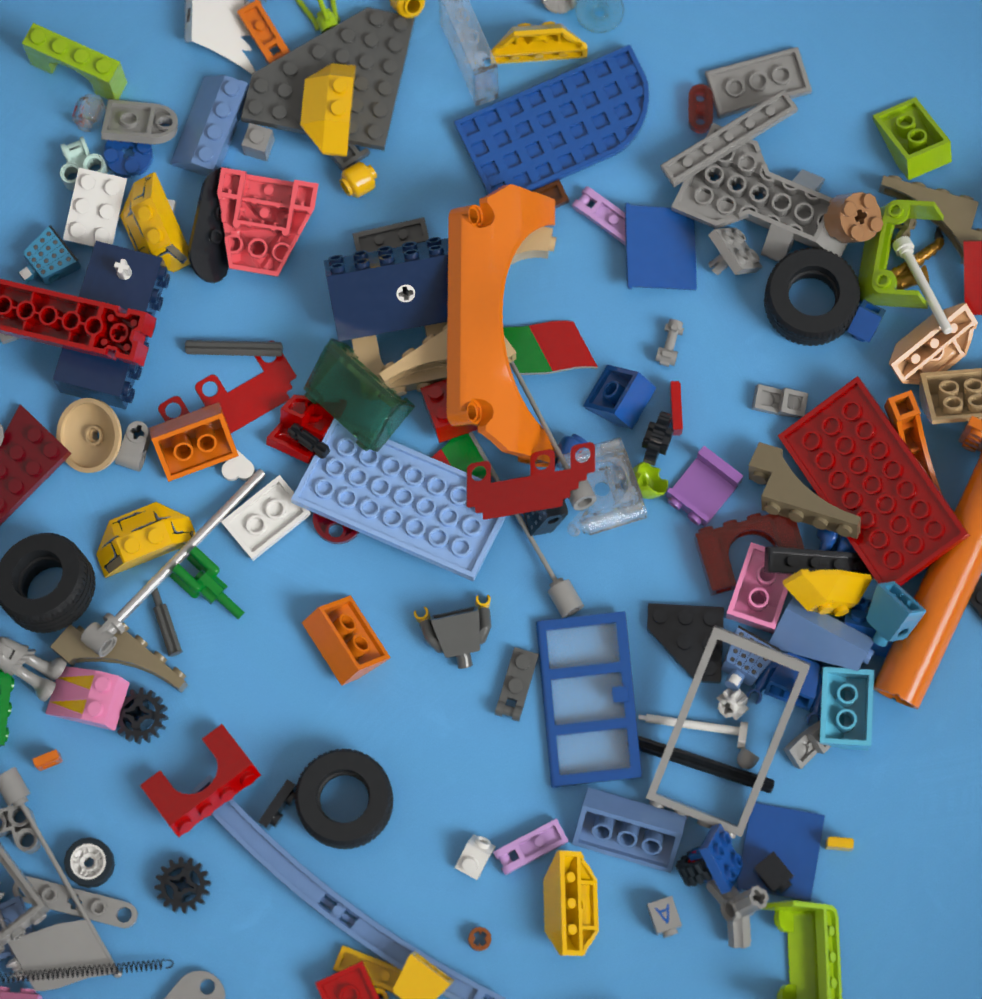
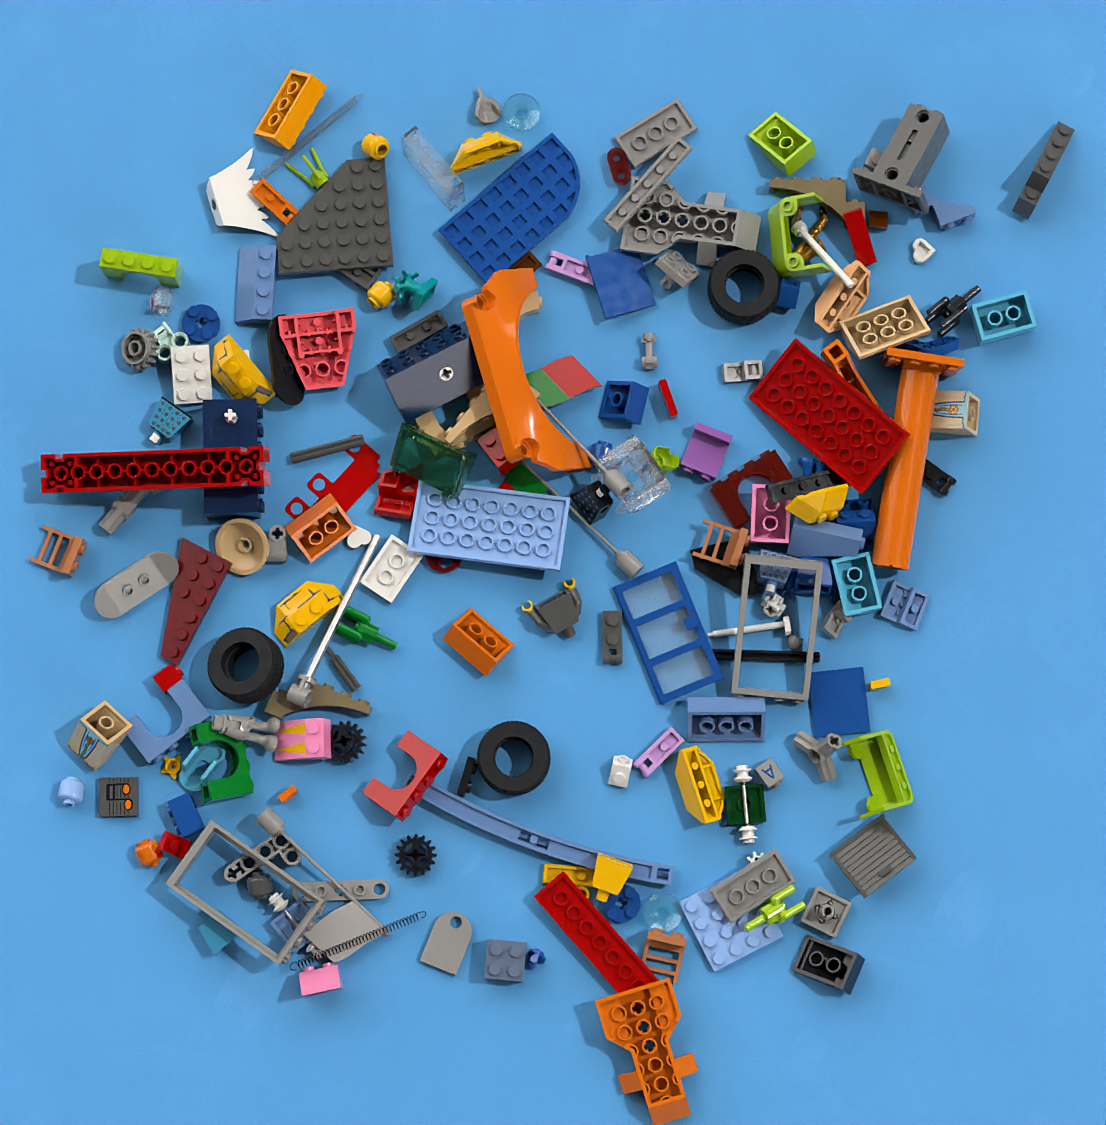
camera: 20 degrees left, 5 degrees up
(42, 160) = (139, 348): none -> light grey gear
(81, 852) = (334, 852): wheel -> none
(138, 122) = (202, 298): light grey tile -> none
(258, 142) = (297, 287): light grey brick -> none
(308, 440) = (406, 502): black axle -> none
(329, 108) = (343, 247): yellow wedge -> none
(407, 190) = (421, 292): none -> teal piece
(471, 938) = (647, 828): dark orange bush -> none
(531, 493) = (582, 496): red piece -> none
(621, 946) = (745, 804): none -> dark green plate
(657, 438) = (661, 426): black gear -> none
(701, 623) = (733, 554): none -> nougat plate
(712, 861) = (792, 724): blue plate -> none
(774, 874) = (839, 720): black brick -> none
(792, 499) = (772, 443): dark tan arch -> none
(853, 217) = (757, 219): medium nougat brick -> none
(893, 613) = (871, 507): dark azure torso -> none
(900, 752) = (904, 605): none -> medium blue slope

